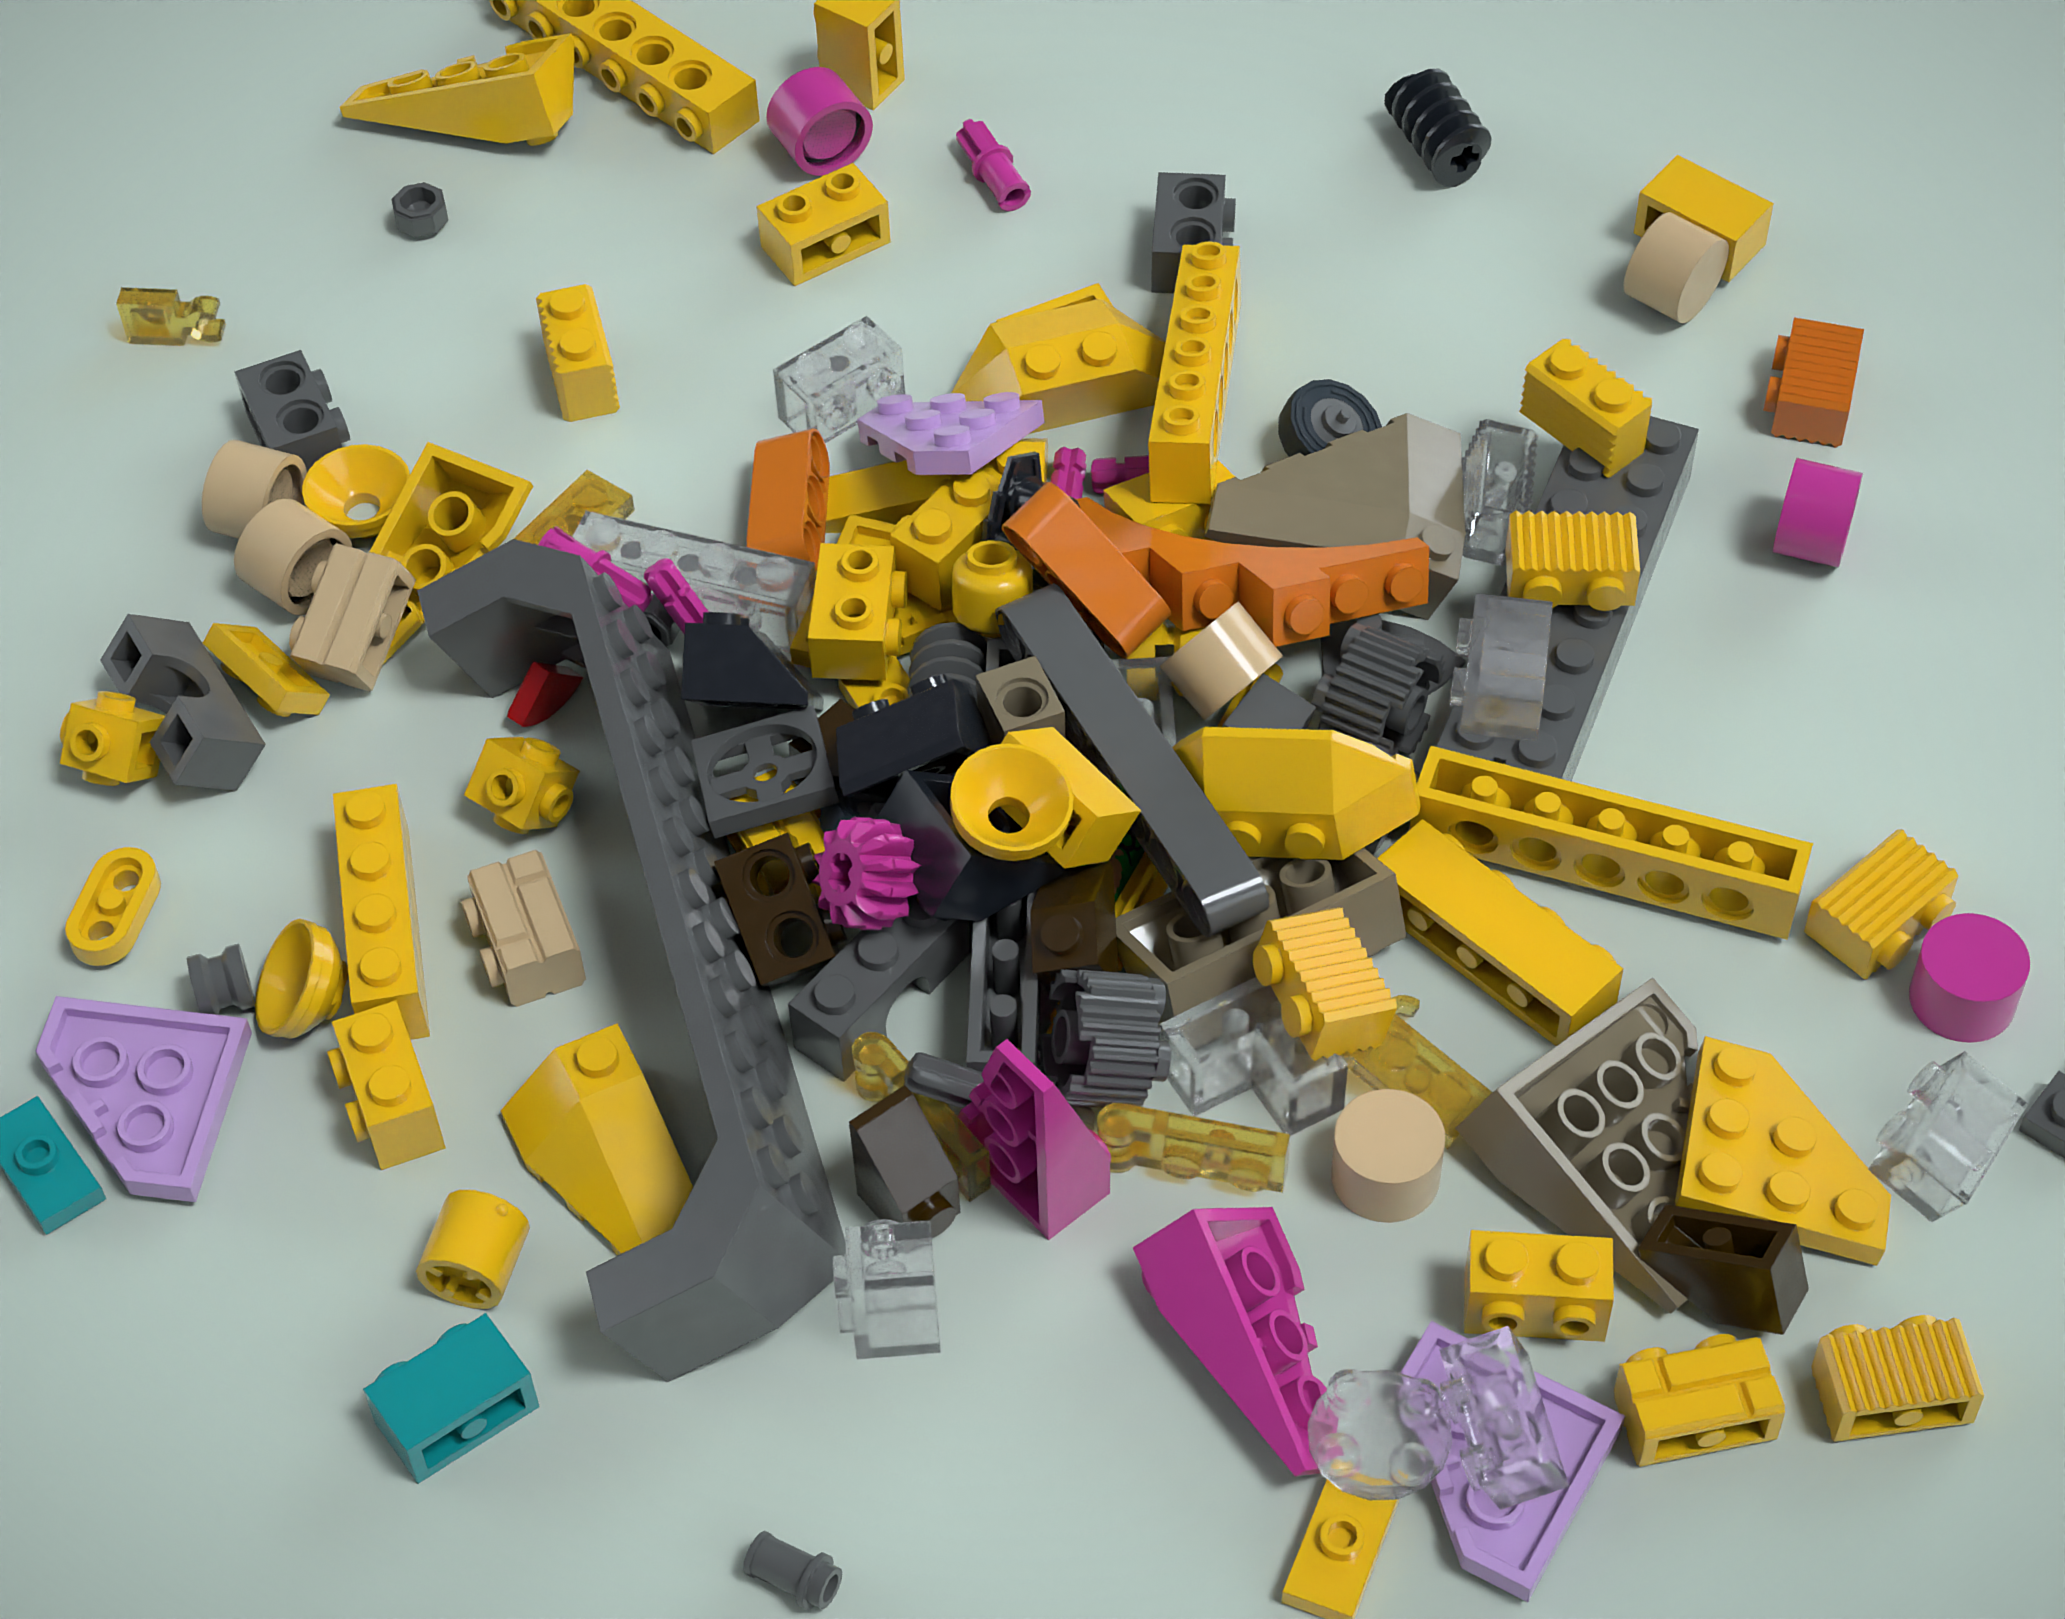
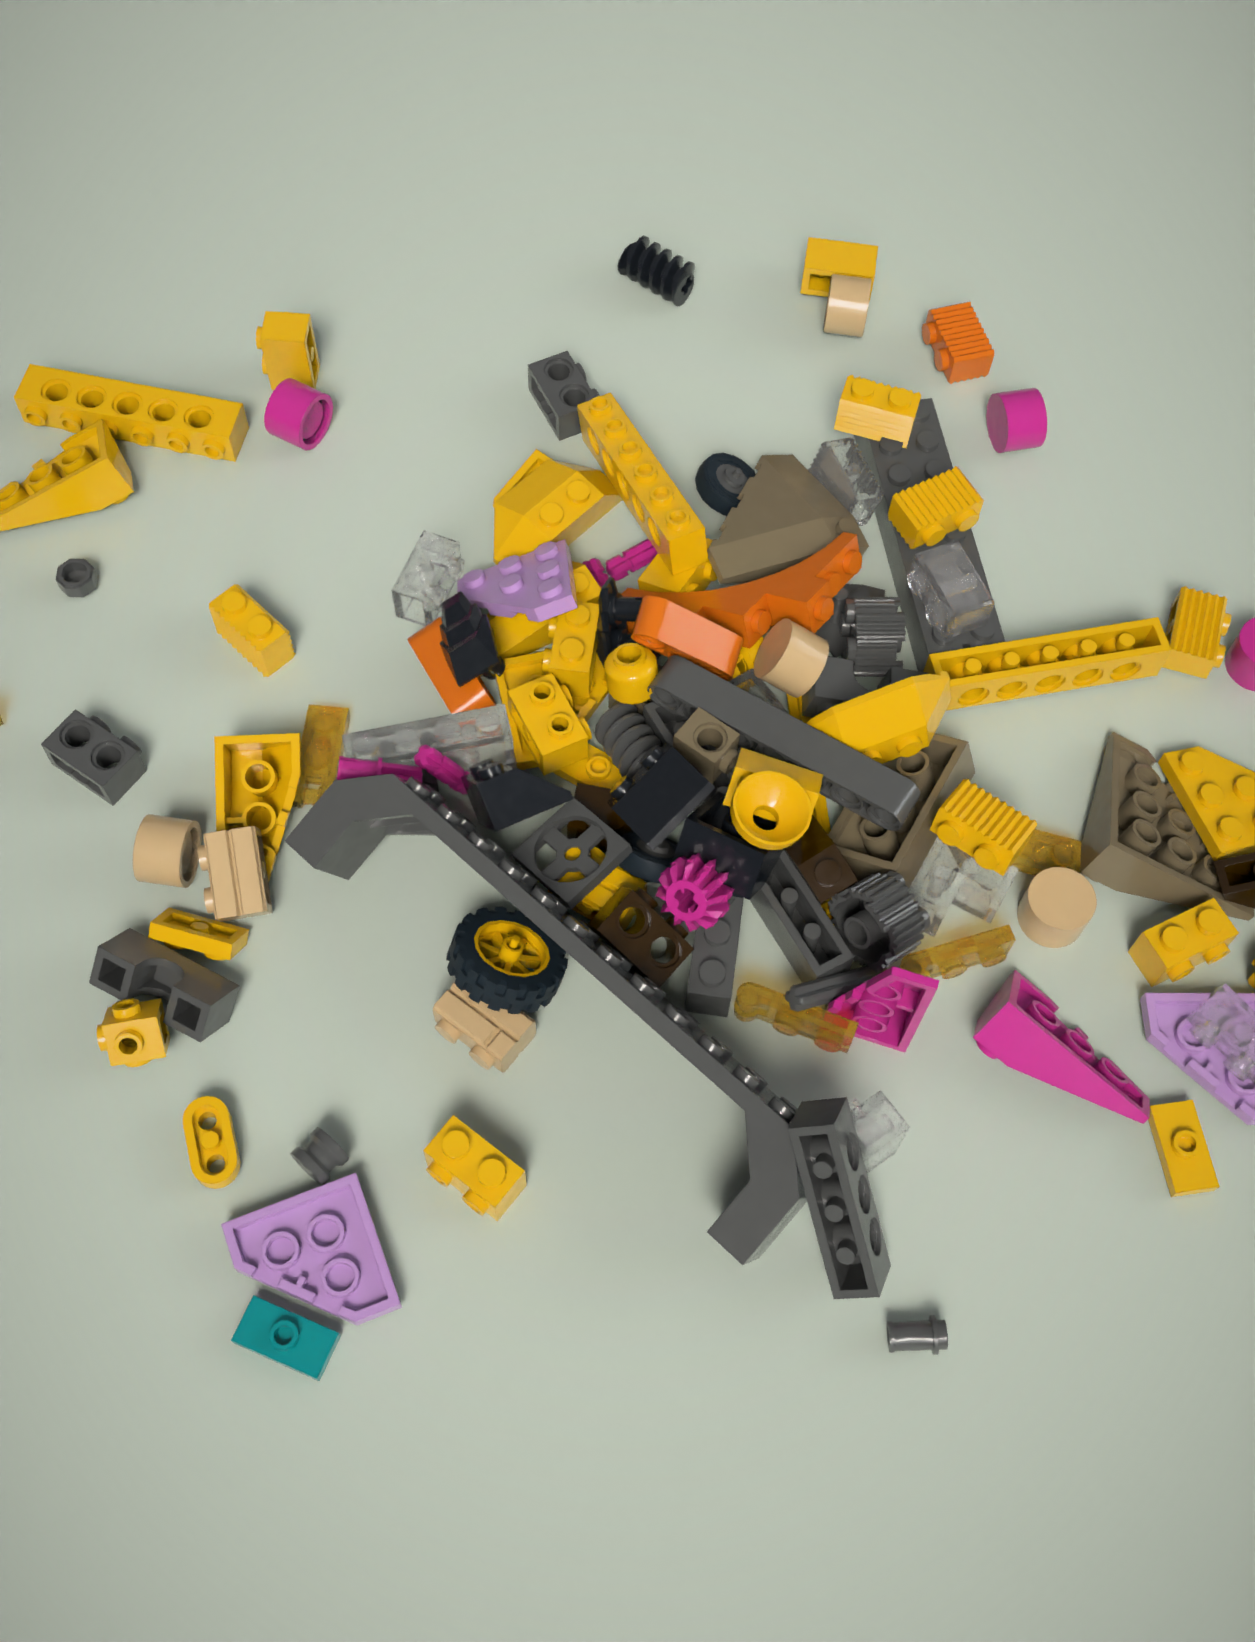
camera: 35 degrees left, 10 degrees up
(246, 480) = (109, 819): tan piece -> none
(300, 981) = (363, 1135): yellow piece -> none
(351, 478) = (175, 771): yellow piece -> none
(380, 904) = (389, 1057): yellow brick -> none
(451, 1397) = (652, 1345): teal brick -> none
(473, 1249) = (602, 1245): yellow piece -> none
(522, 783) = (420, 930): yellow brick -> none
(543, 693) = (384, 864): red tile -> none
(577, 878) = (504, 977): none -> black wheel
(600, 1139) = (631, 1136): yellow wedge -> none
(782, 1322) = (839, 1198): none -> dark grey brick
(818, 467) = (468, 641): none -> black connector
(823, 224) = (343, 479): yellow brick -> none
(902, 1164) = (819, 1060): slope -> none
(993, 165) = (416, 398): dark pink axle -> none
(1379, 1433) = (1170, 1075): clear dish -> none
(1500, 935) = (1027, 747): yellow brick -> none

